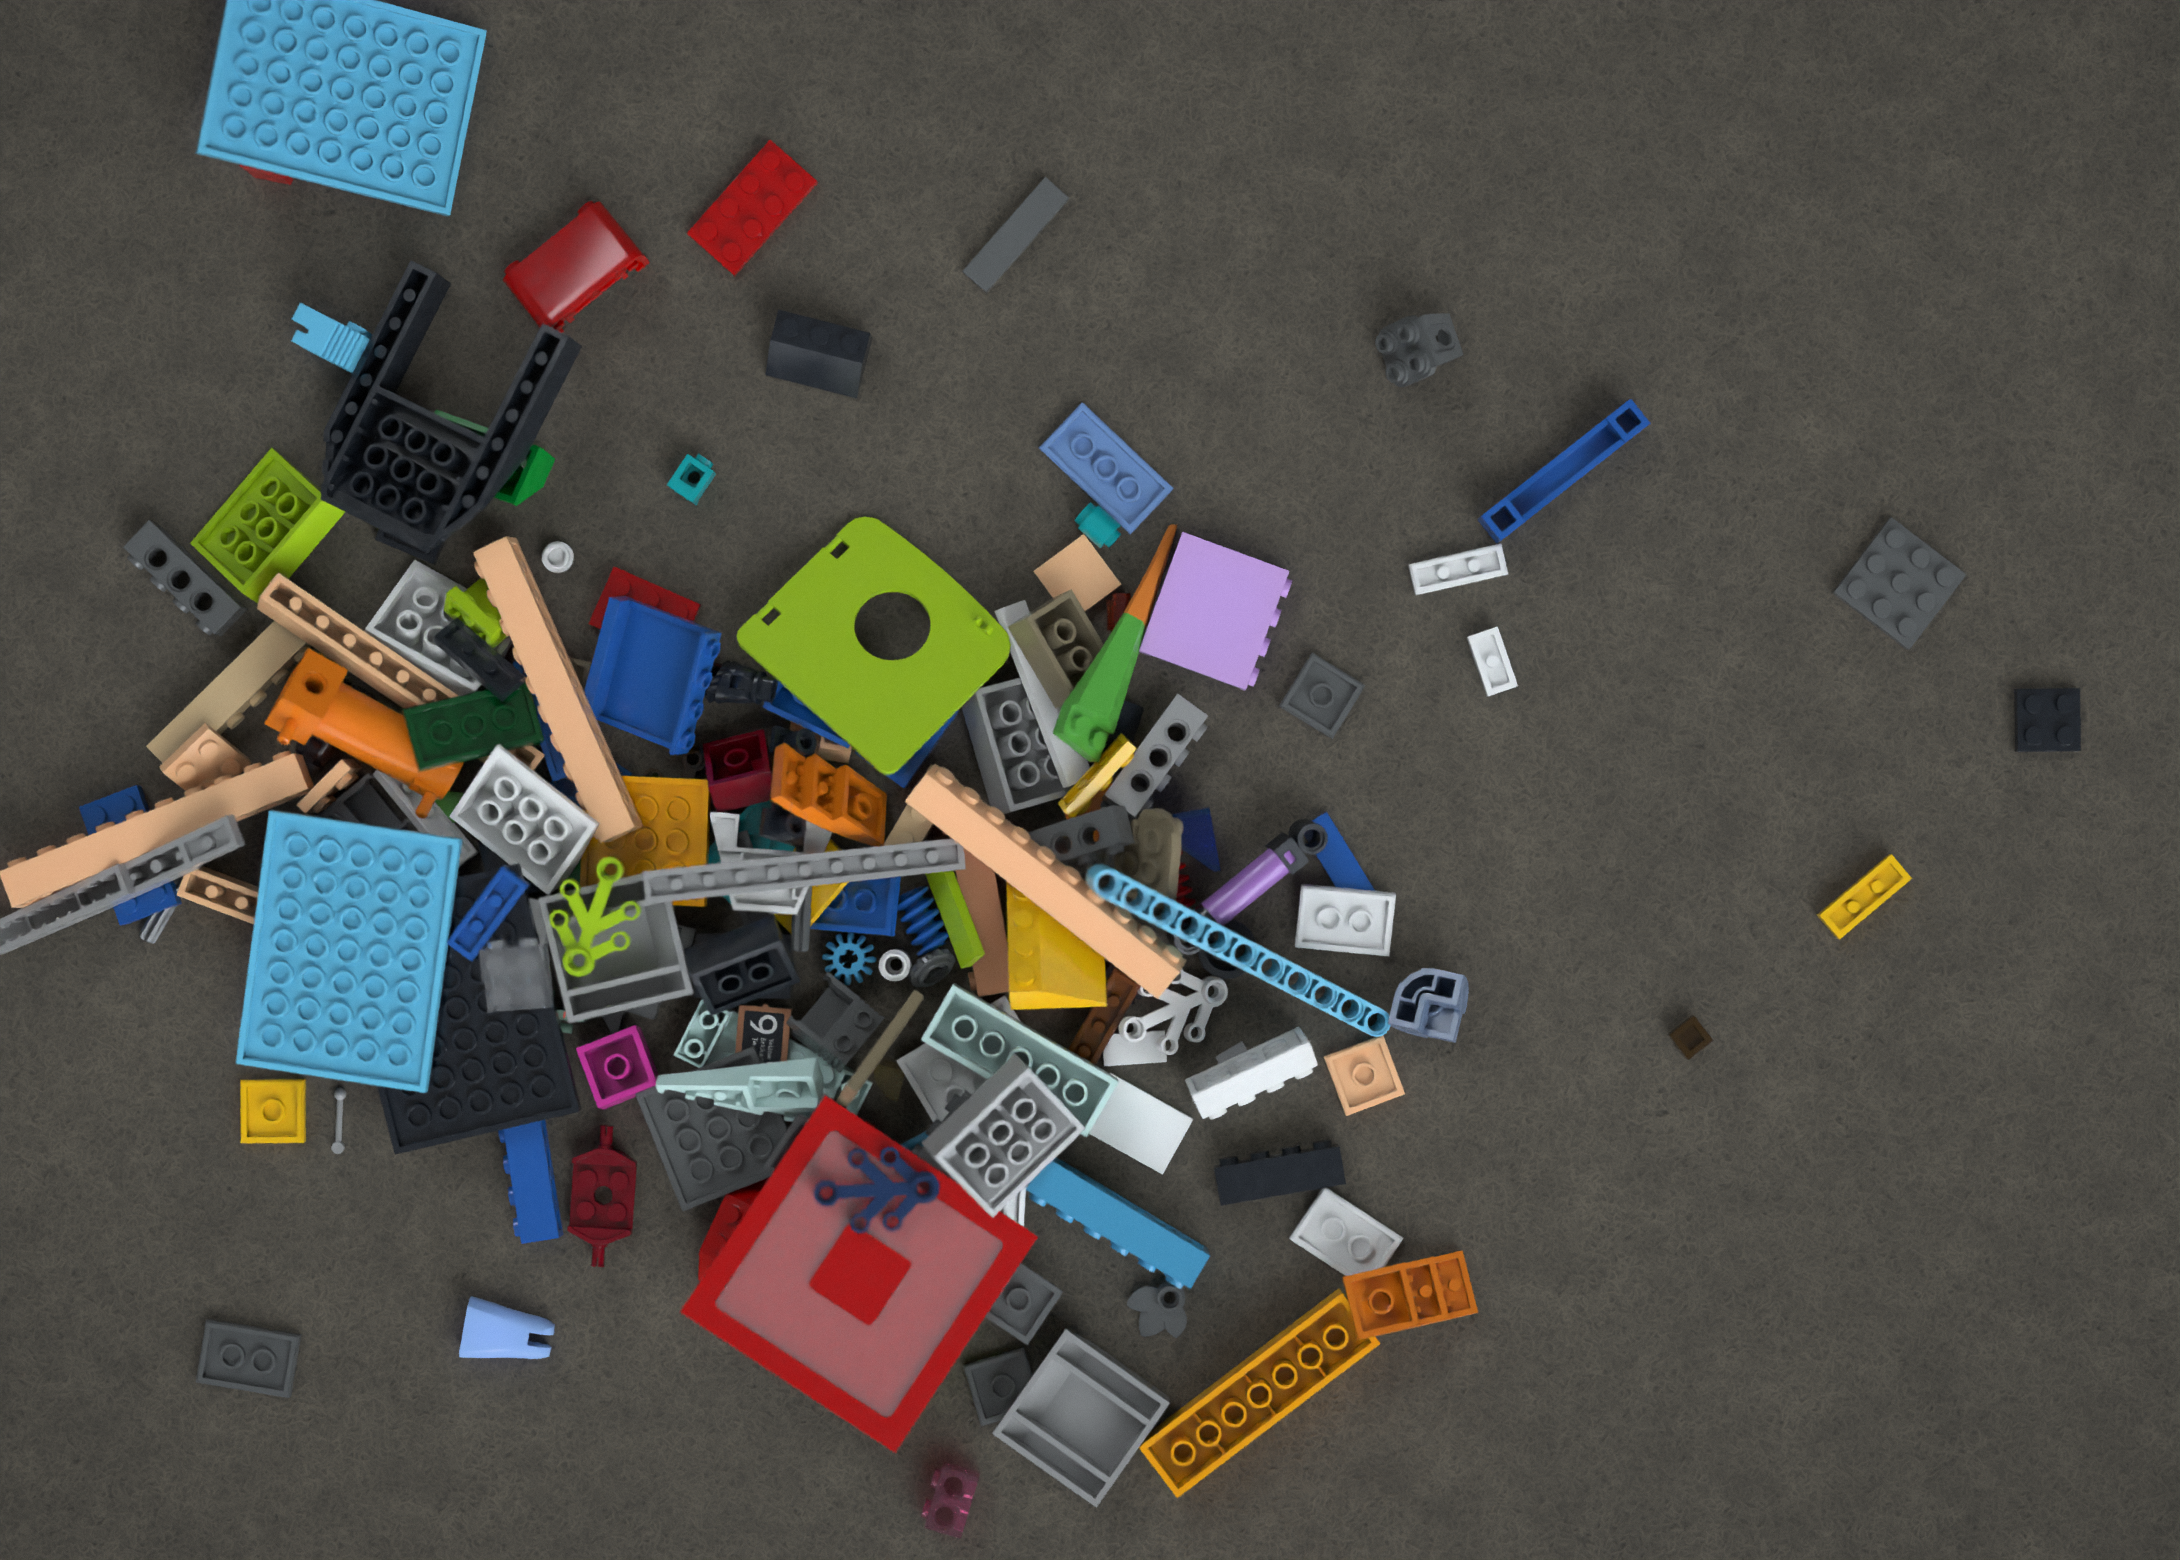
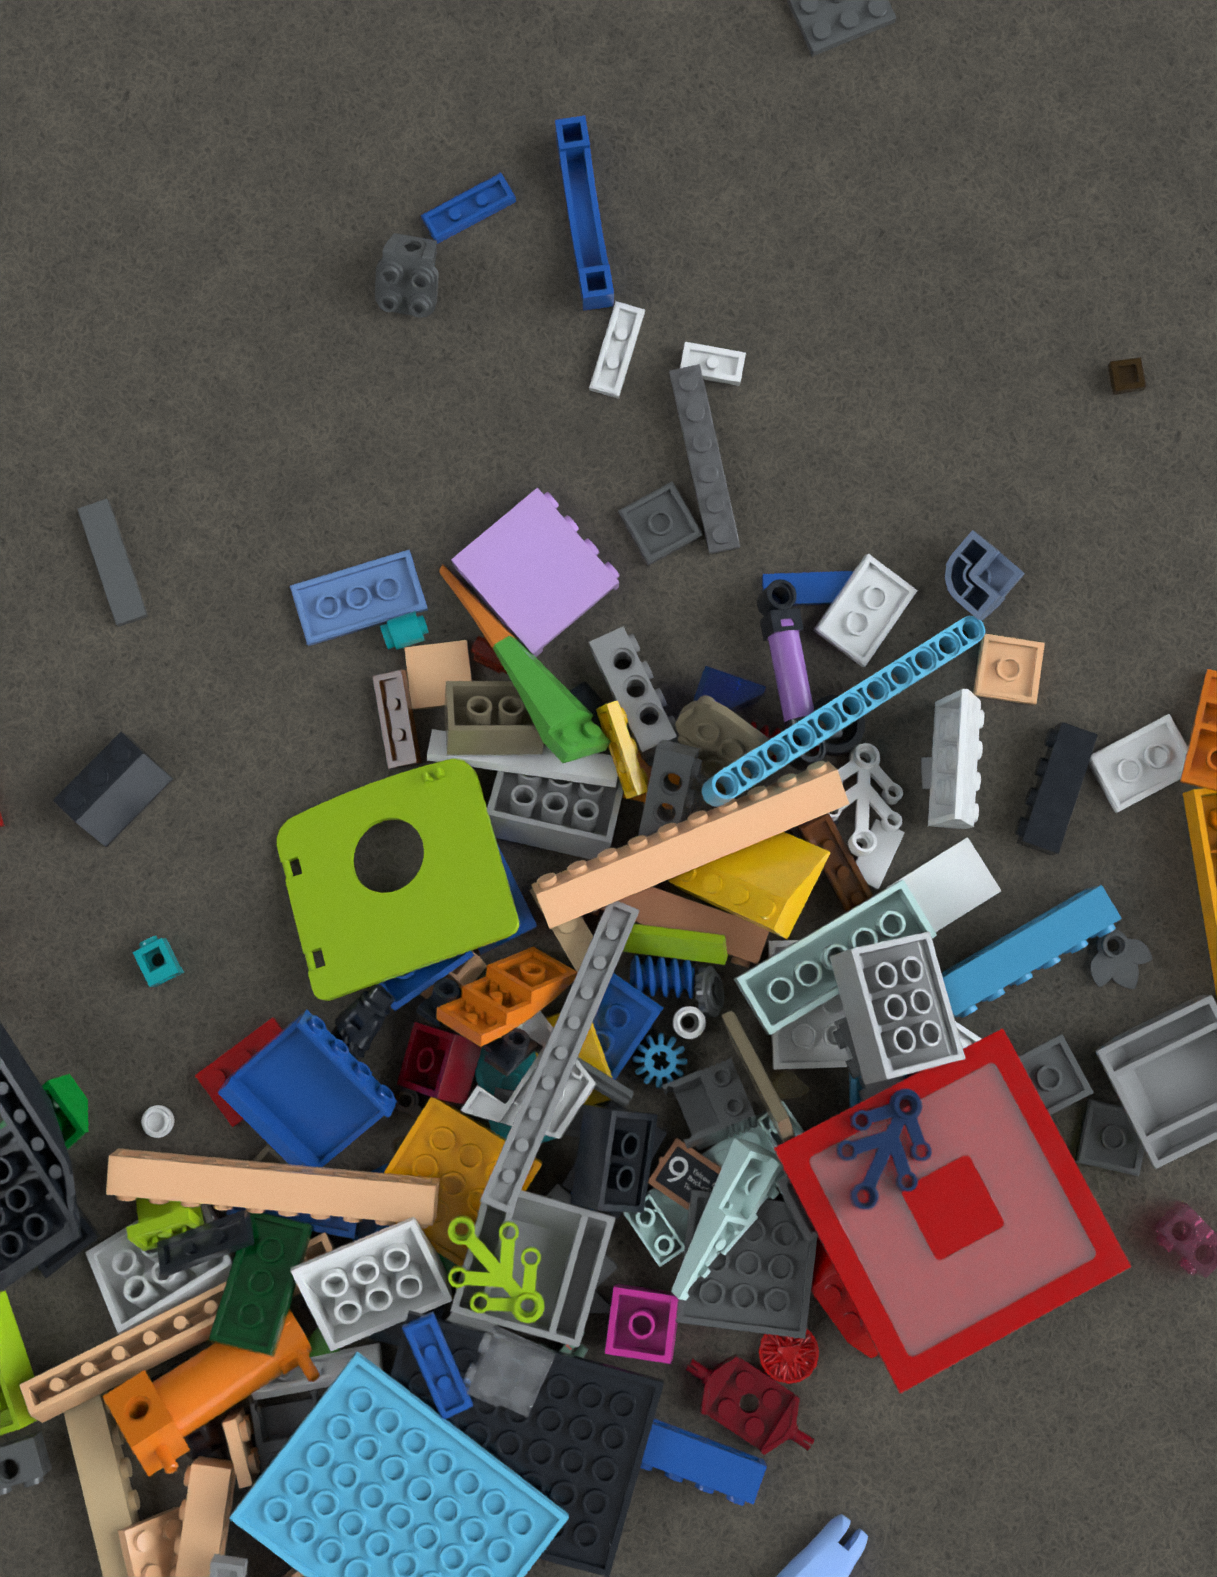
camera: 70 degrees left, 5 degrees down
(659, 1208) = (788, 1358): none -> red wheel
(1016, 563) = (397, 719): none -> plate
(1400, 703) = (704, 459): none -> flat silver plate
(1513, 364) = (468, 208): none -> blue tile
(1864, 896) = (1085, 167): yellow plate -> none

